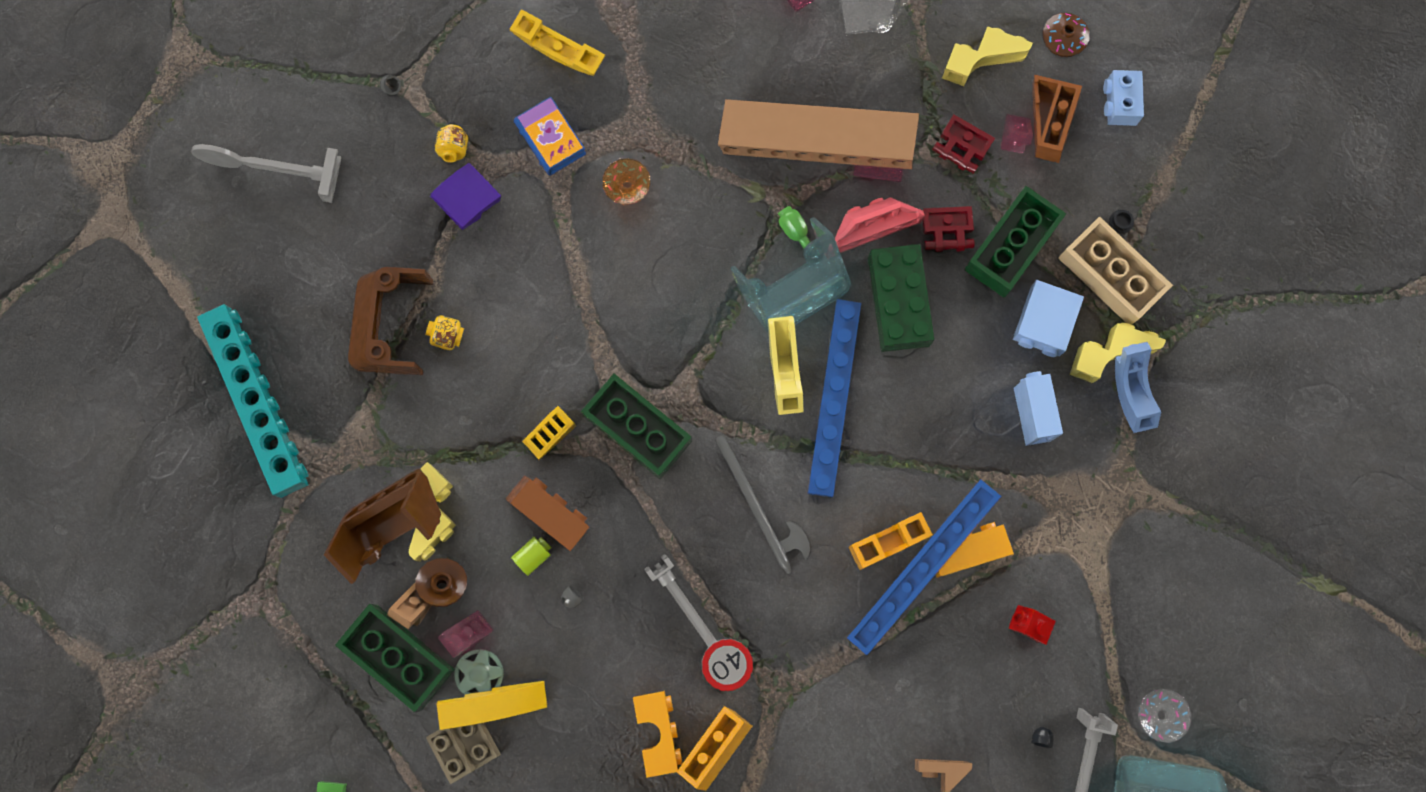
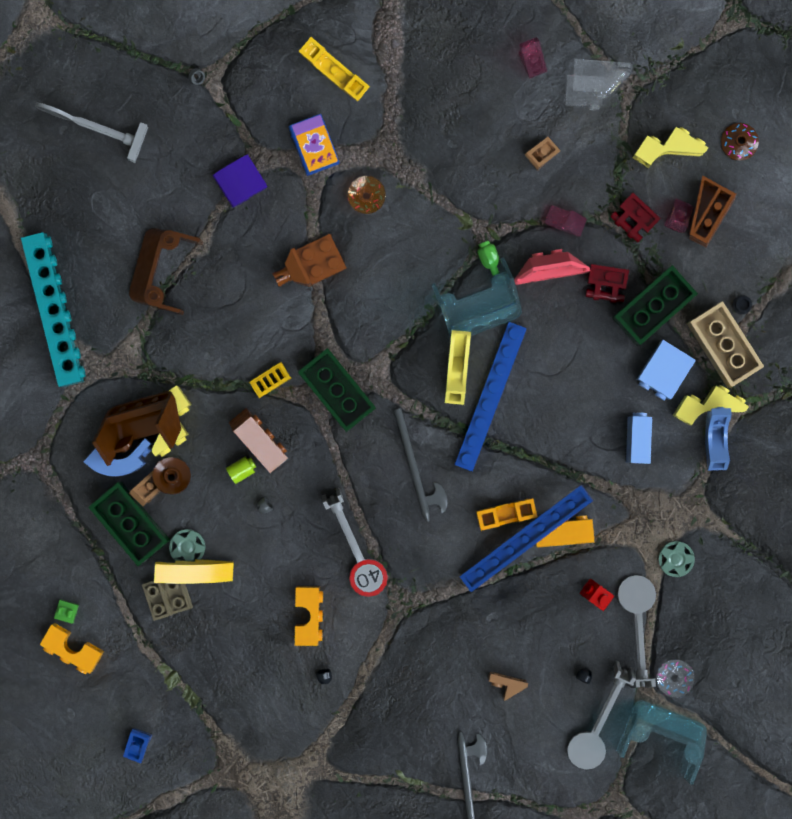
camera: 15 degrees right, 10 degrees up
(373, 583) = (120, 466): none -> medium blue arch
(445, 332) = (205, 287): yellow head -> none
(451, 143) = (236, 135): yellow head -> none
(465, 634) = (183, 517): clear pink slope -> none
(573, 278) = (311, 263): none -> dark orange plate
(714, 749) = (347, 635): light orange brick -> none
(819, 132) = (522, 189): medium nougat tile -> none
(830, 90) = (542, 153): none -> medium nougat slope
(900, 298) = (557, 331): dark green brick -> none
(1086, 617) = (637, 596): none -> light grey piece
(1122, 556) = (676, 559): none -> sand green wheel
(1124, 97) = (770, 205): light blue brick -> none

